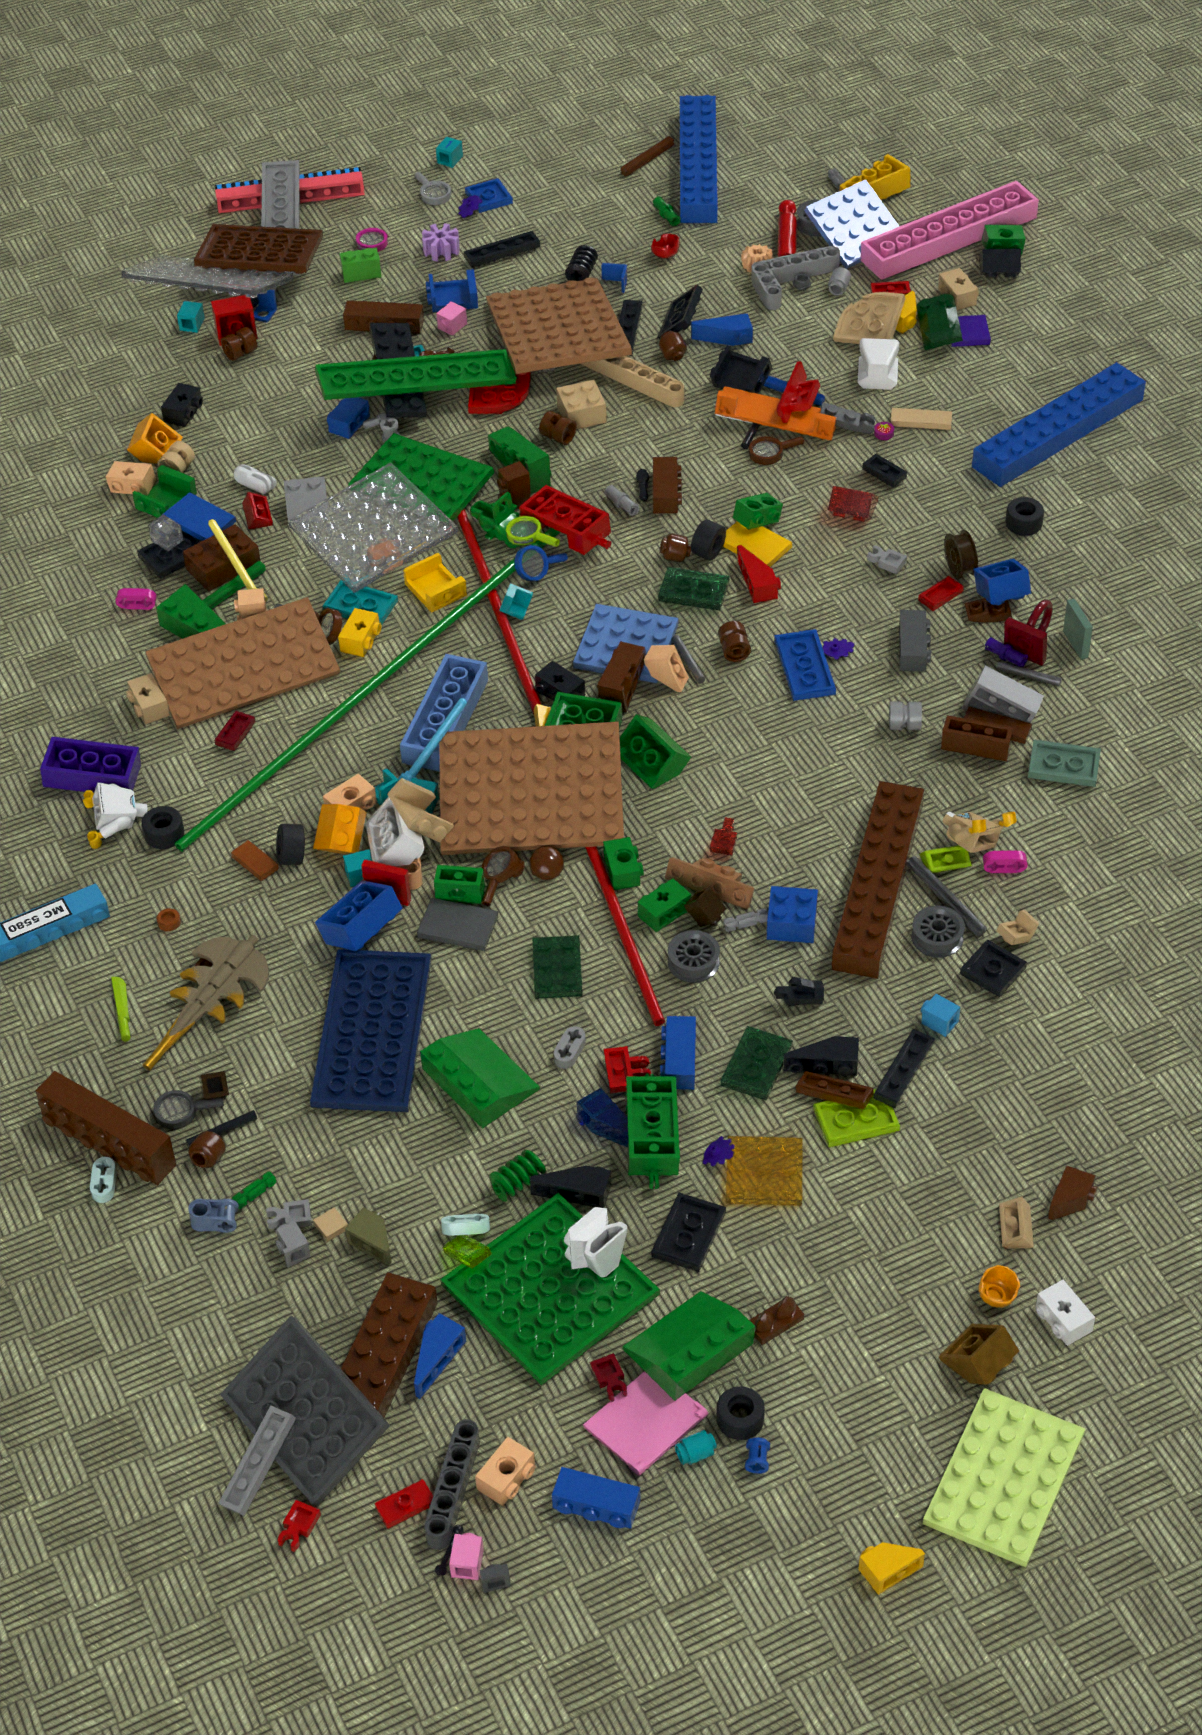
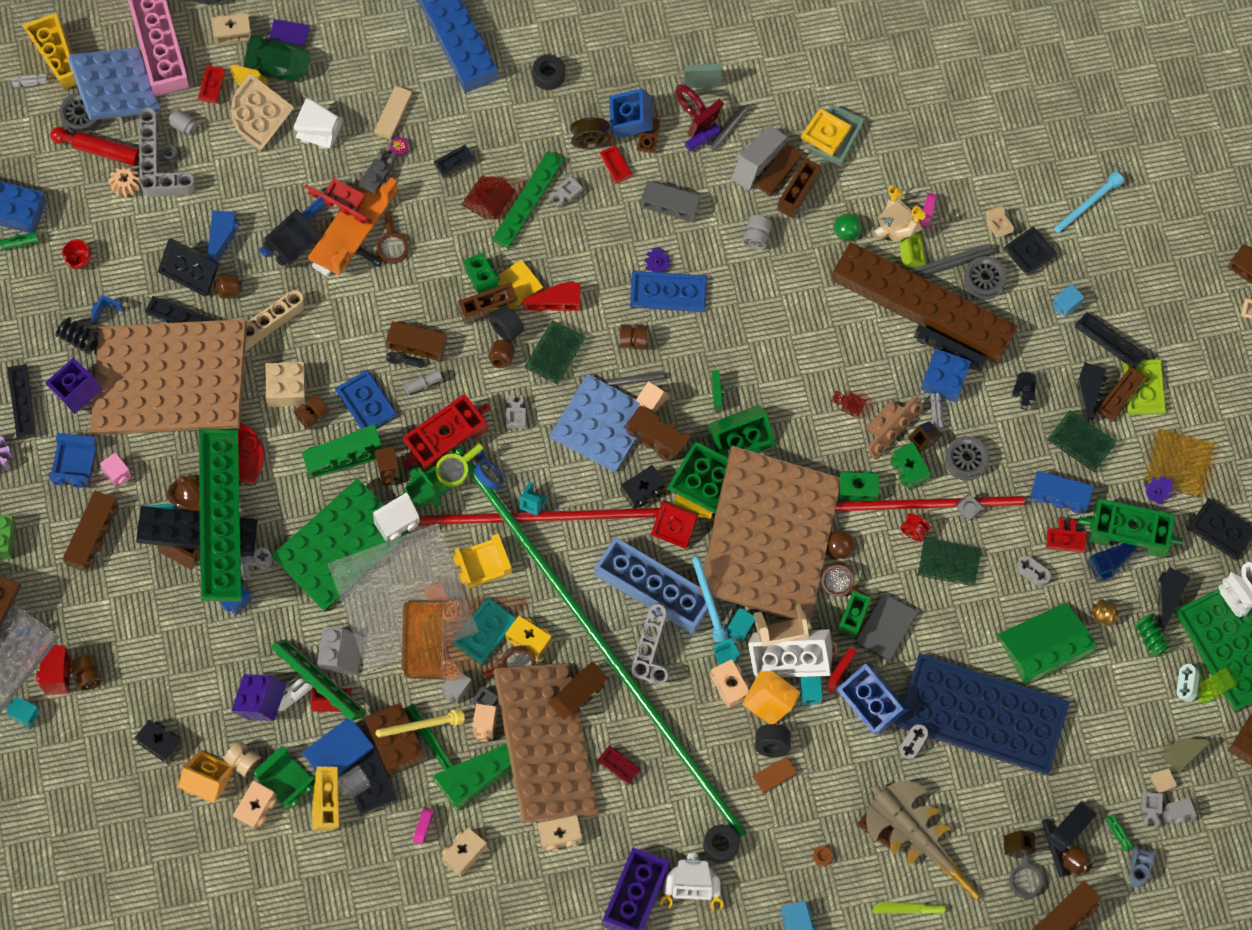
camera: 80 degrees left, 20 degrees up
(113, 632) = (461, 862): none -> tan brick
(135, 520) = (325, 800): none -> yellow slope
(238, 451) = (258, 697): none -> dark purple brick
(248, 1135) = (1072, 826): none -> black beam
(268, 488) = (318, 679): none -> green plate
(290, 589) = (456, 689): none -> light grey brick
(298, 552) = (425, 639): none -> clear orange windscreen
(305, 673) = (579, 691): none -> reddish brown brick
(320, 967) = (917, 743): none -> light grey beam
(370, 717) = (653, 642): none -> light grey beam
(452, 491) = (396, 517): none -> white slope
(523, 710) = (674, 524): none -> red tile
(525, 268) = (74, 385): none -> dark purple brick
(534, 1122) = (1105, 612): none -> pearl gold piece
(586, 468) = (366, 401): none -> blue tile
(586, 920) = (915, 527): none -> red wheel
(609, 574) = (516, 415): none -> light grey plate
(630, 966) = (968, 506): none -> plate
(696, 722) = (717, 391): none -> green plate
(720, 512) = (485, 303): none -> reddish brown slope
(827, 920) = (939, 342): none -> black plate
(866, 535) = (528, 200): none -> green plate
(950, 797) = (848, 227): none -> green hair
(1060, 748) = (826, 132): none -> yellow tile
(1130, 1035) = (1114, 180): none -> medium azure piece

